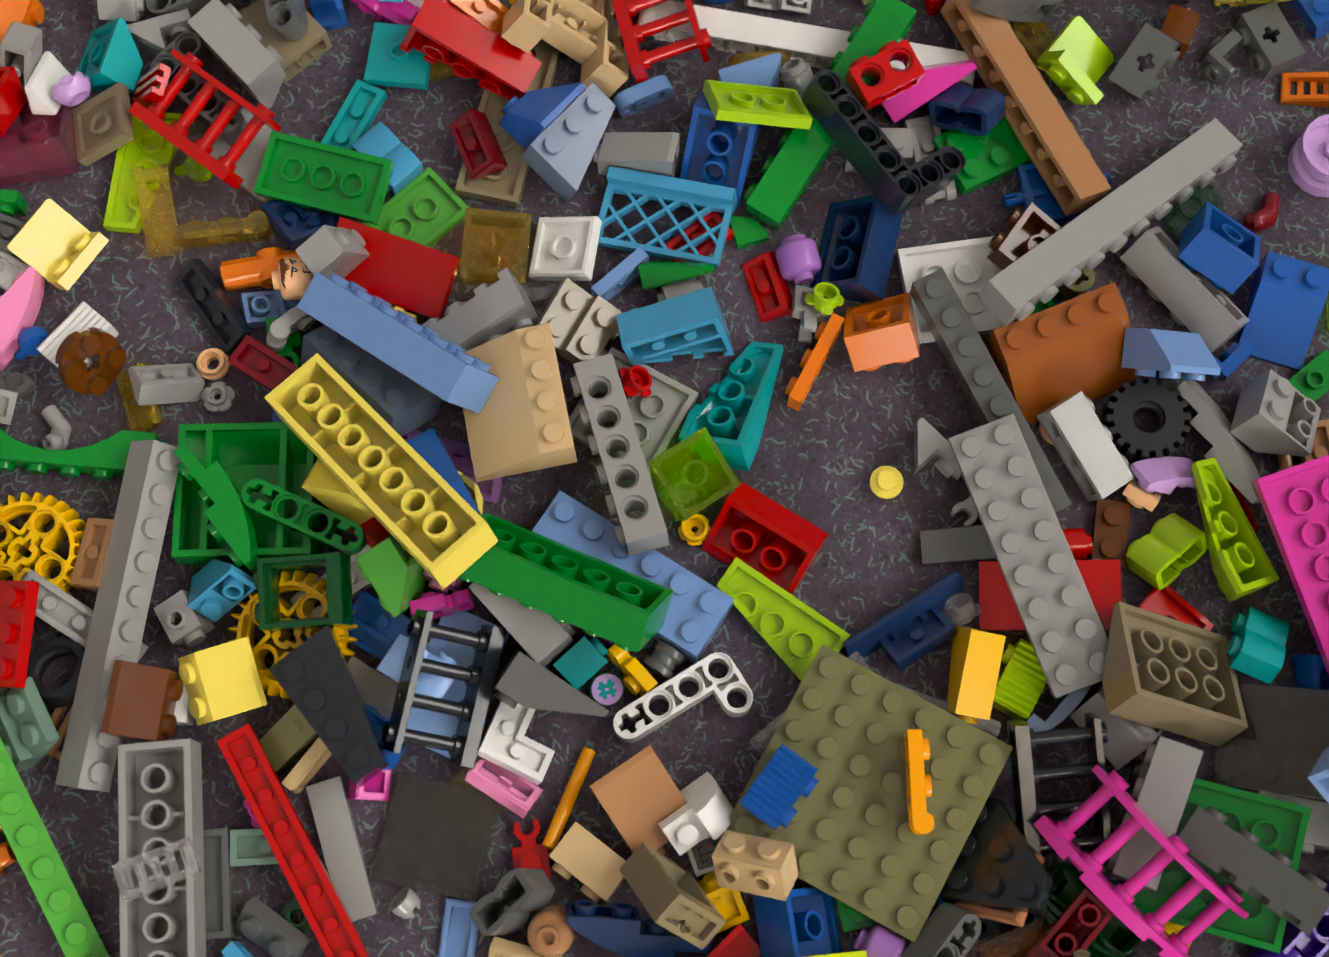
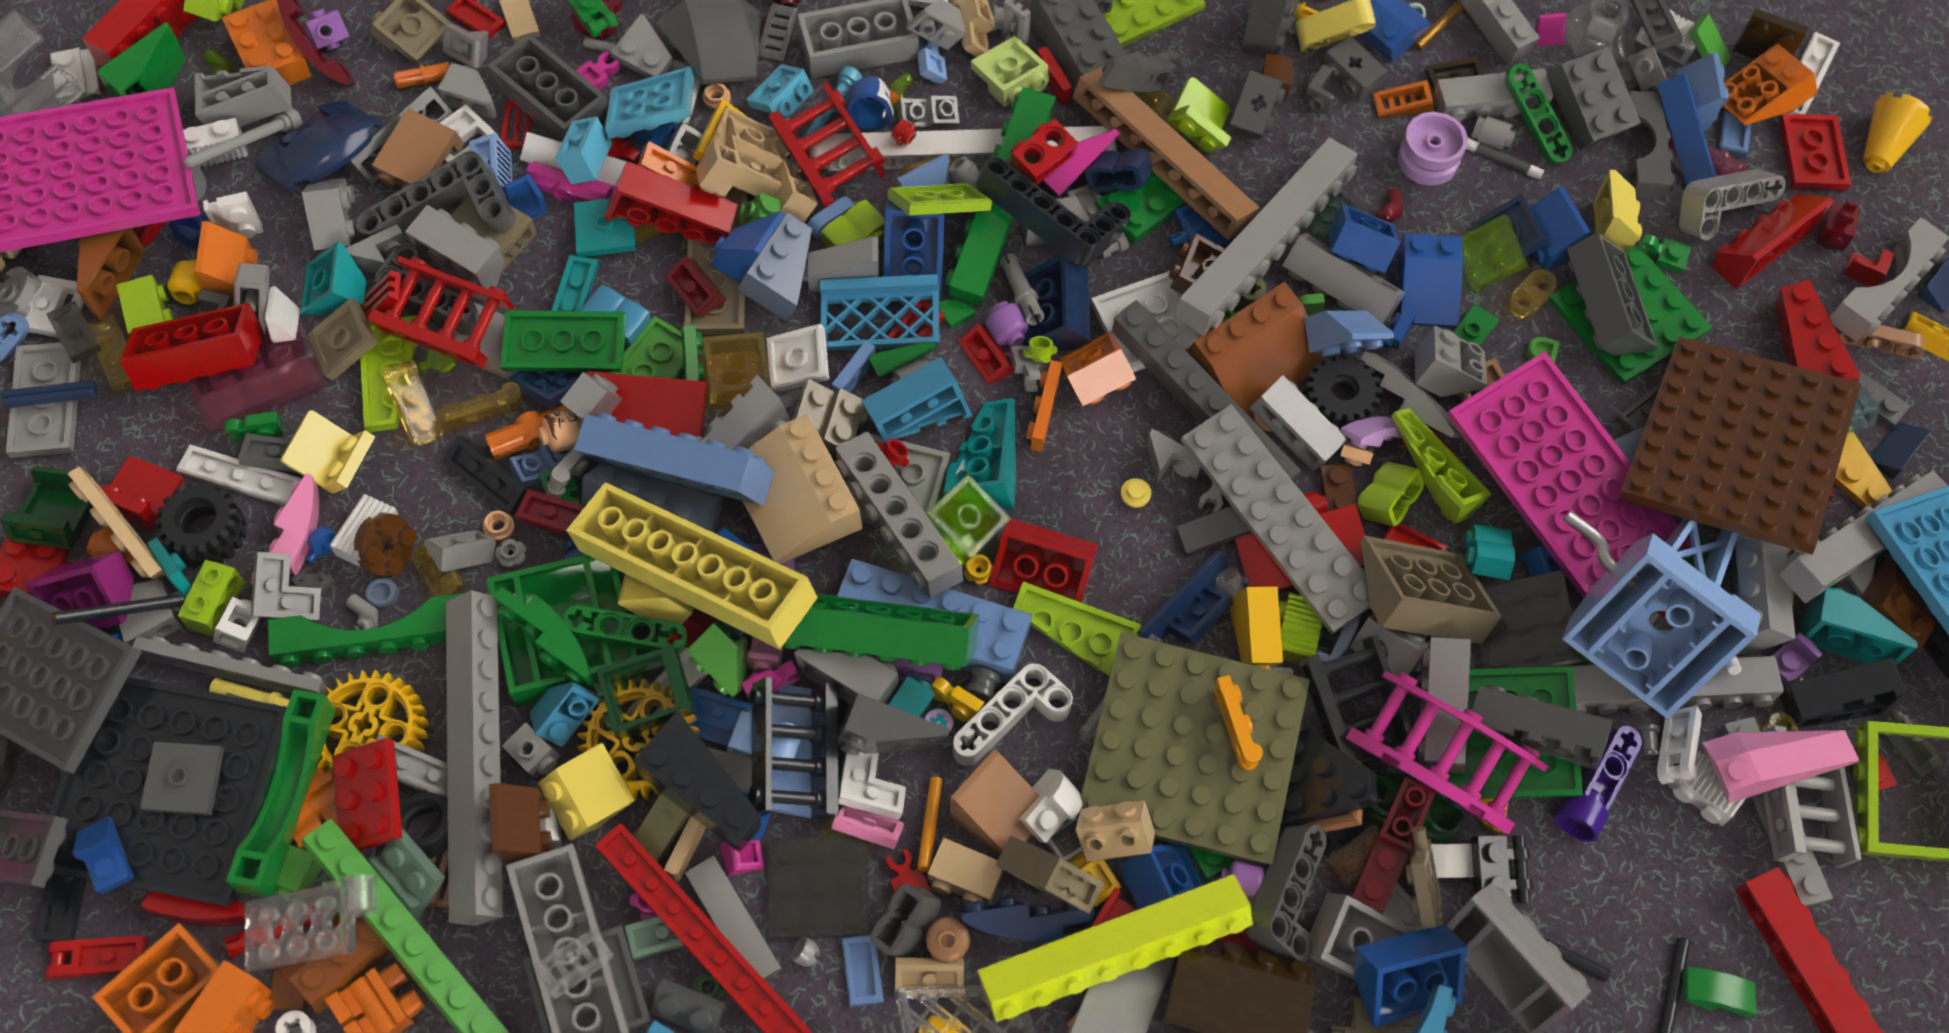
camera: 20 degrees left, 10 degrees down
(72, 89) = (307, 314): lavender plate -> none
(80, 410) = (382, 593): none -> sand blue tile
(92, 554) = (432, 712): medium nougat panel -> none
(454, 210) = (691, 343): none -> green plate
(565, 72) = (758, 208): none -> bright green brick
(665, 112) = (856, 224): none -> lime brick
(743, 16) = (904, 132): none -> red plate
(779, 787) = (1118, 757): blue brick -> none
(825, 232) = (1025, 296): none -> light grey pin
(1140, 309) = (1313, 303): none -> bright green tile

